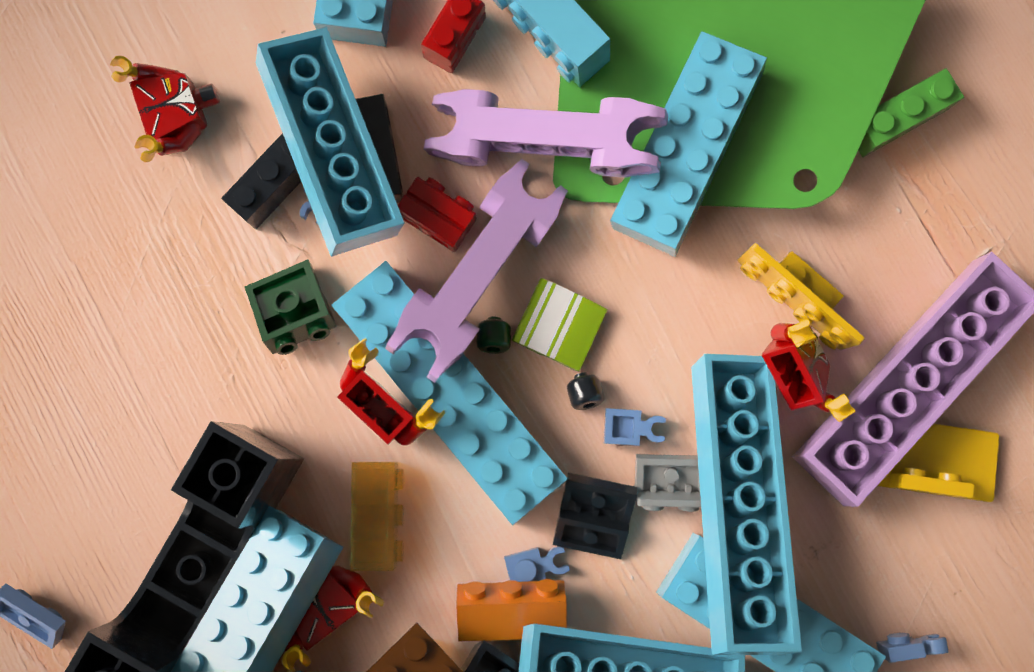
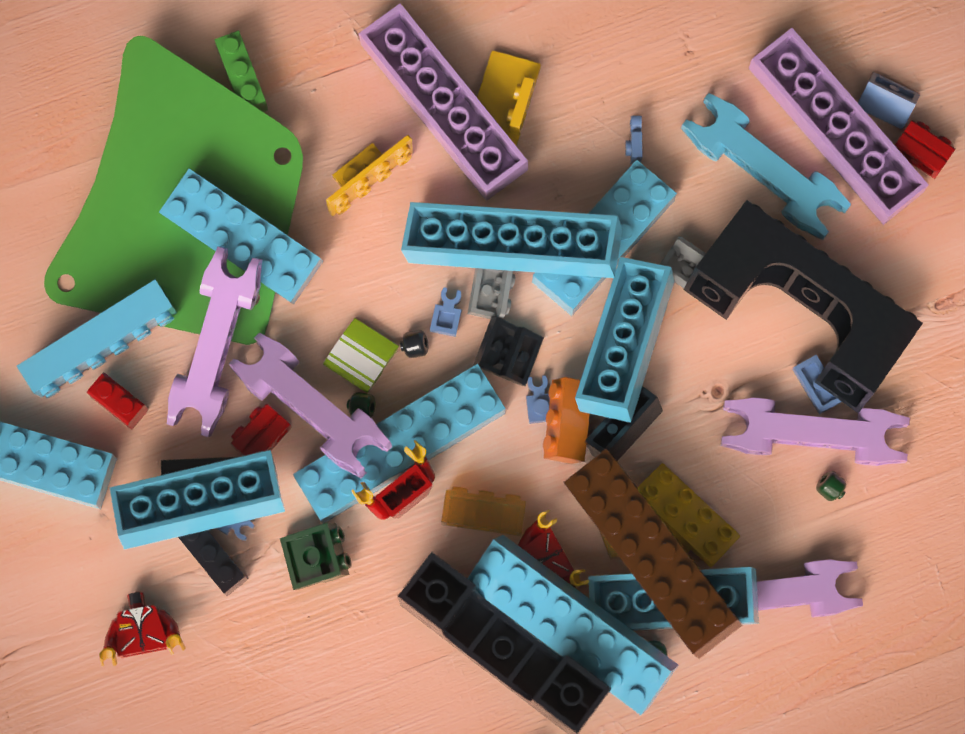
camera: 80 degrees left, 5 degrees down
(802, 369) = (423, 182): red torso -> none

